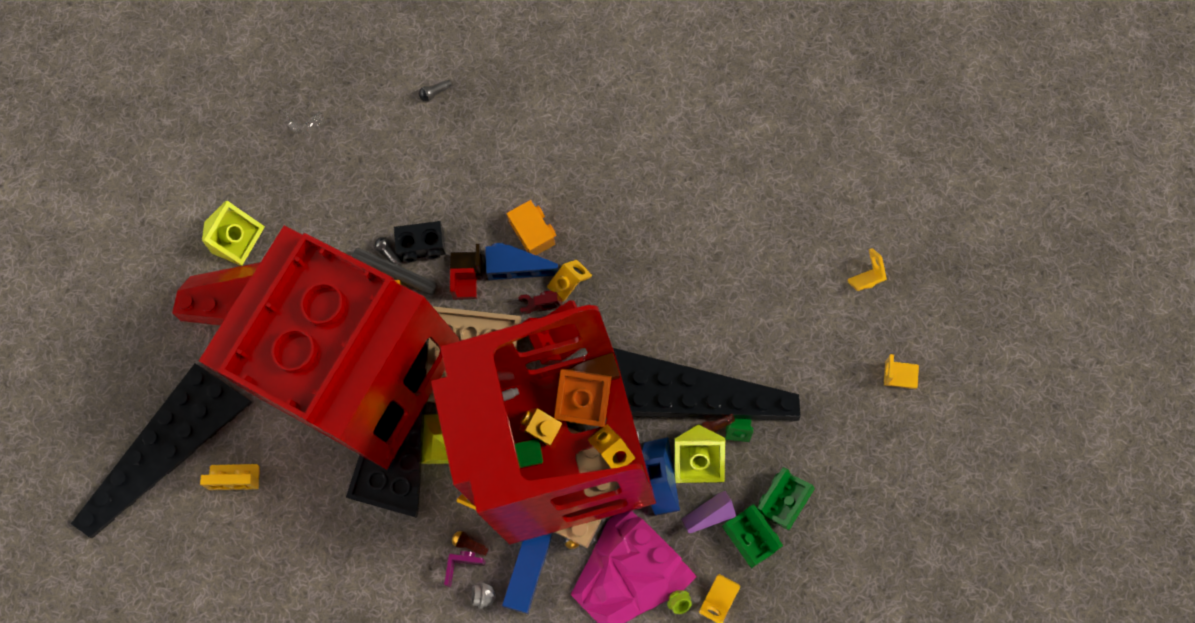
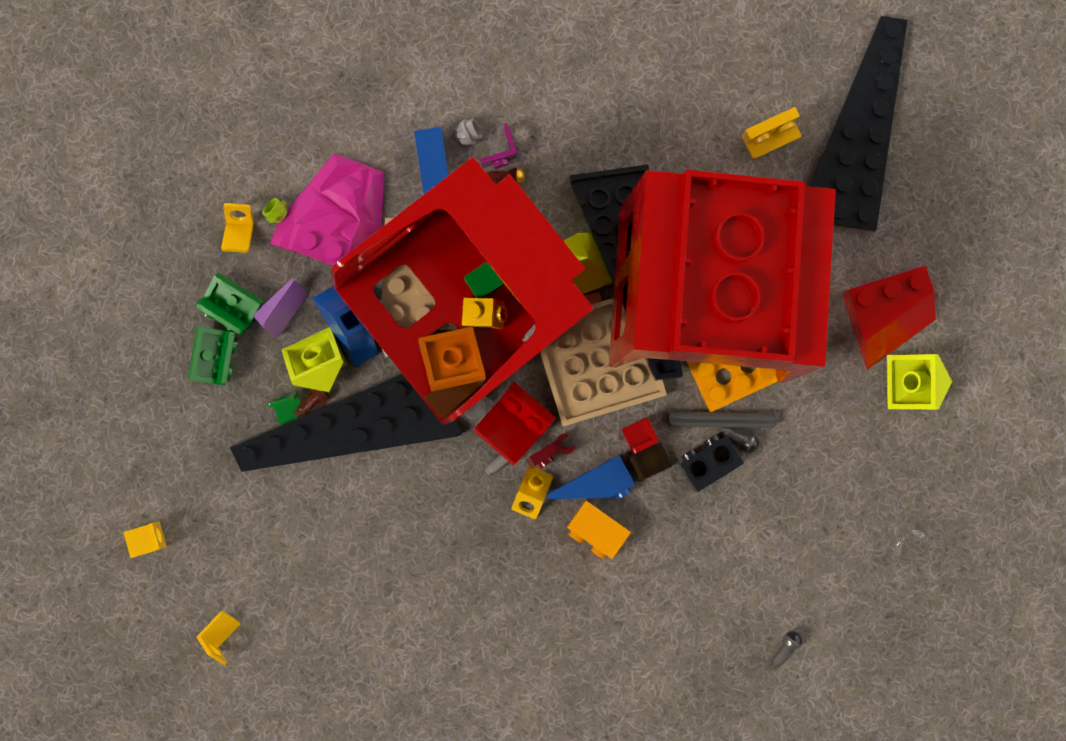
camera: 150 degrees right, 15 degrees up
(609, 443) = (402, 321): yellow bracket -> none

